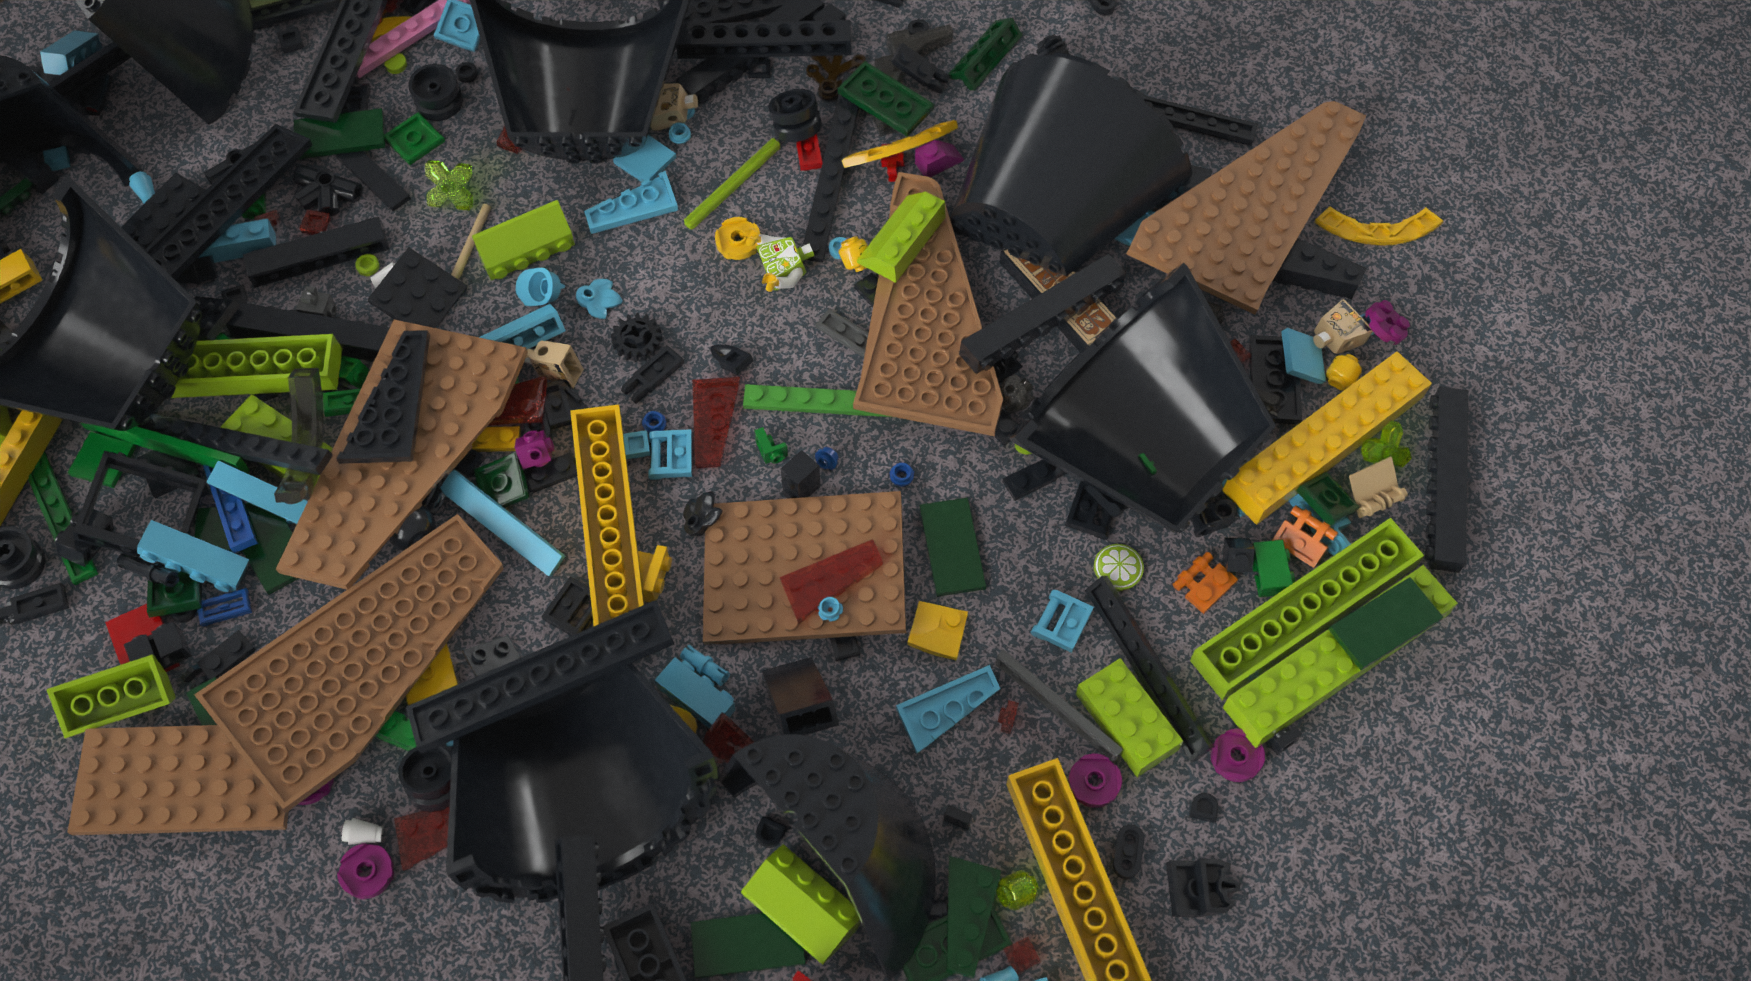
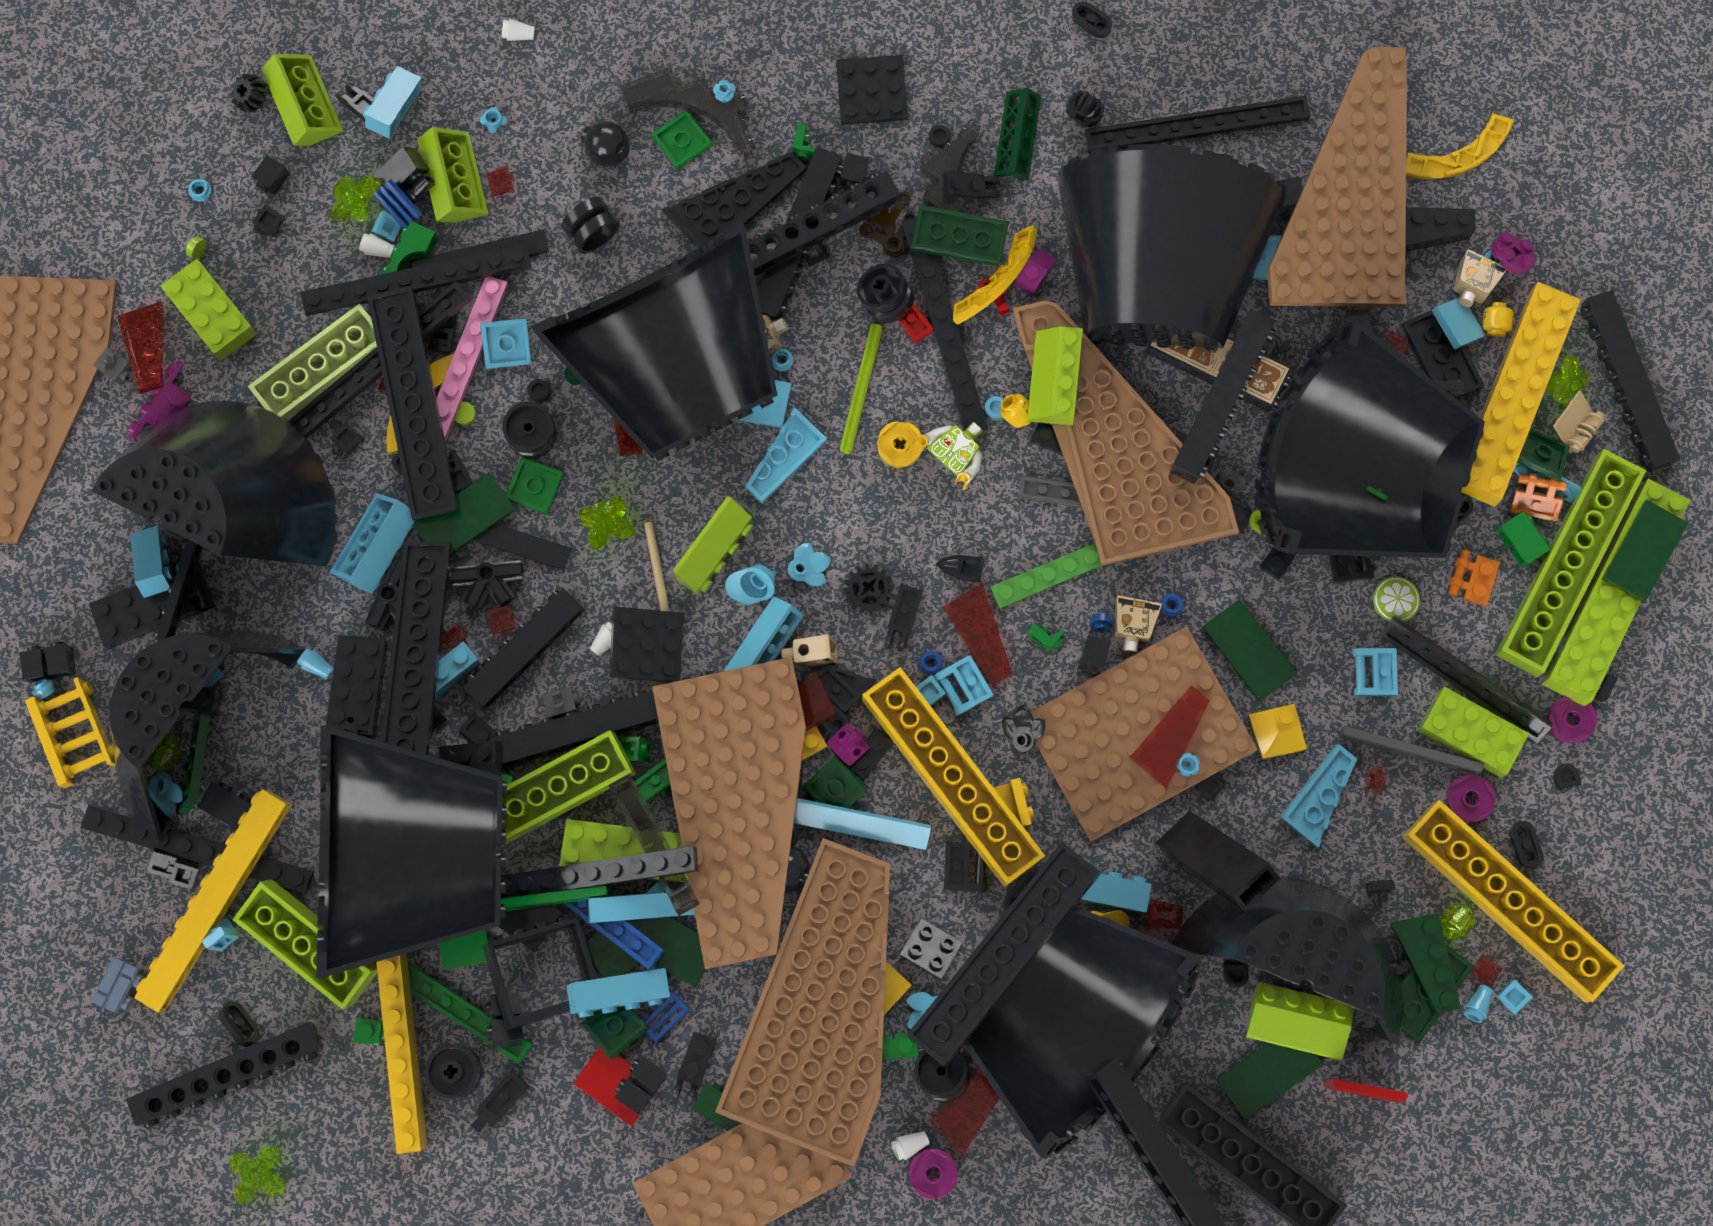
camera: 25 degrees left, 15 degrees up
(111, 695) = (634, 1146): lime slope -> none
(152, 571) = (593, 1023): black pin -> none
(254, 122) = (374, 543): none -> medium azure slope
(367, 265) = (576, 636): lime tile -> none
(392, 411) = (717, 783): black wing -> none
(705, 665) = (1106, 861): medium azure pin -> none
(859, 470) = (1135, 621): none -> tan torso
(1200, 887) = (1596, 846): black plate -> none
(1238, 554) = (1492, 541): black brick -> none

